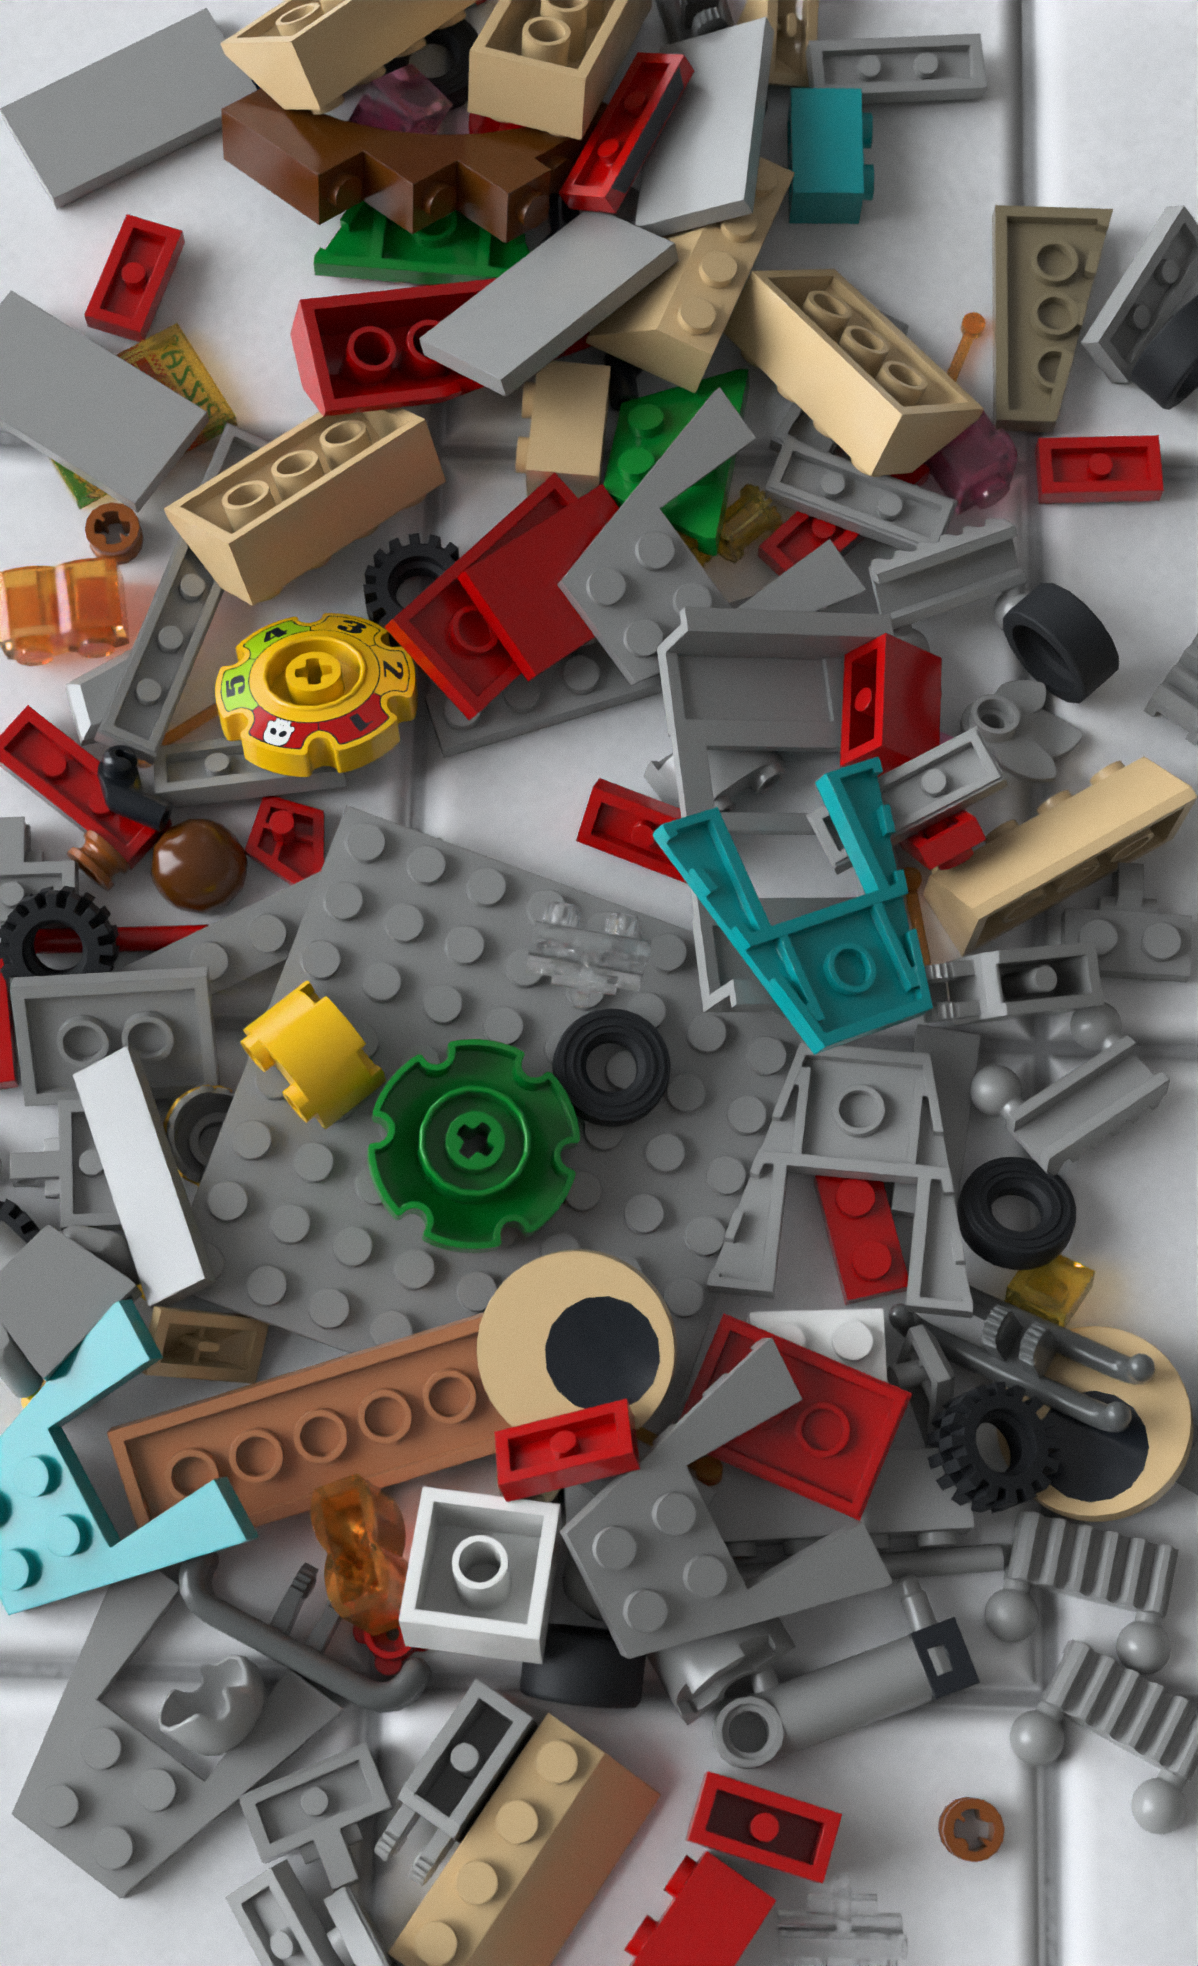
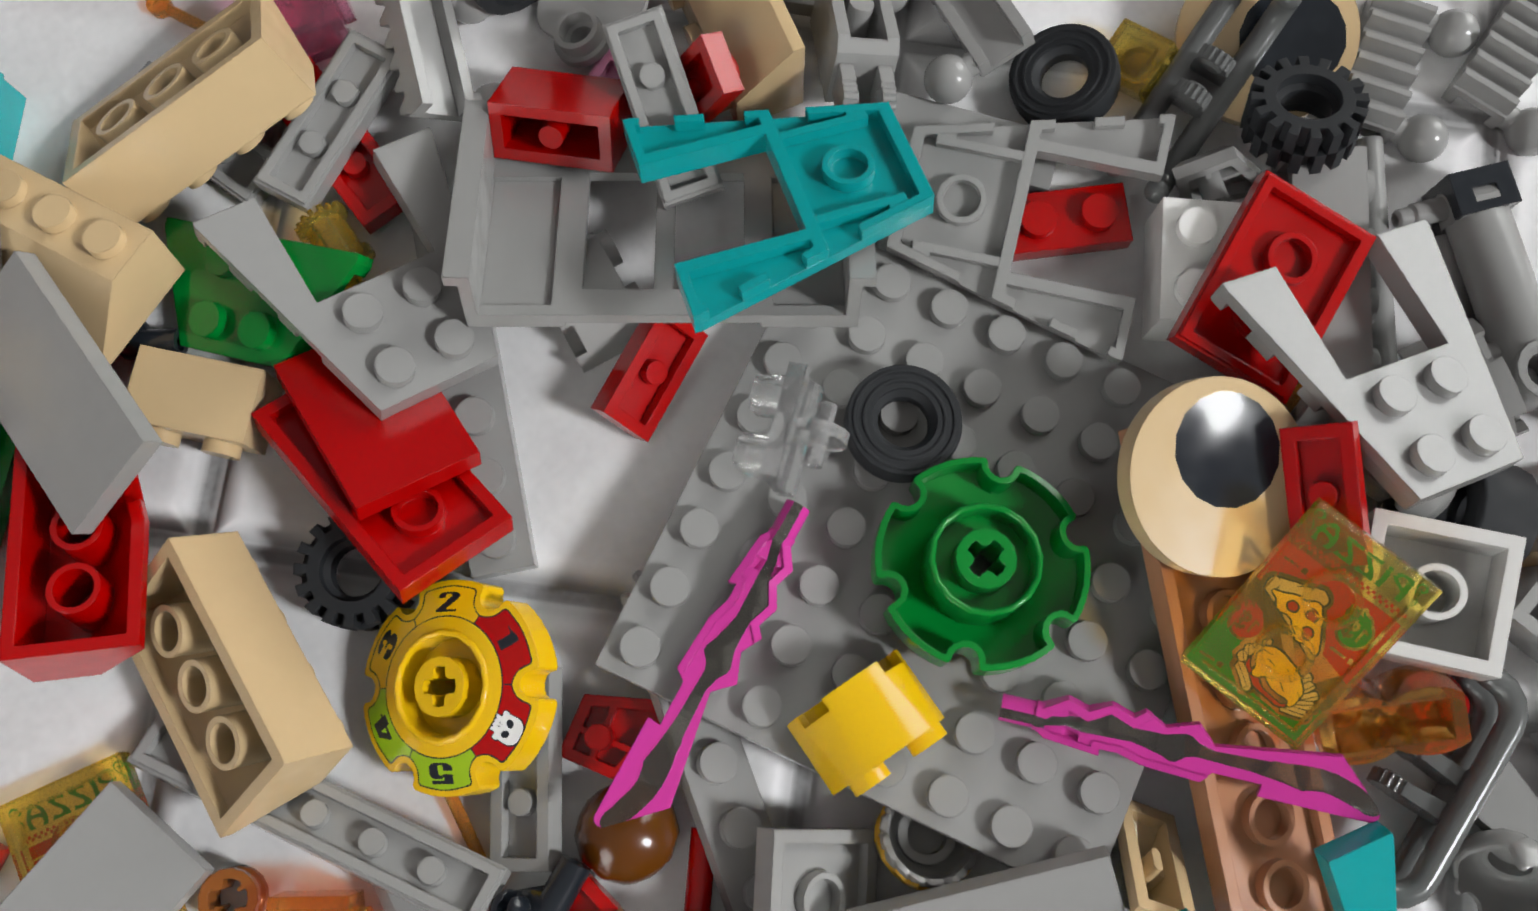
camera: 80 degrees left, 5 degrees up
(311, 1350) = (1186, 750): none -> dark pink sword
(355, 906) = (659, 754): none -> dark pink sword
(438, 1441) = (1309, 623): none -> clear yellow tile

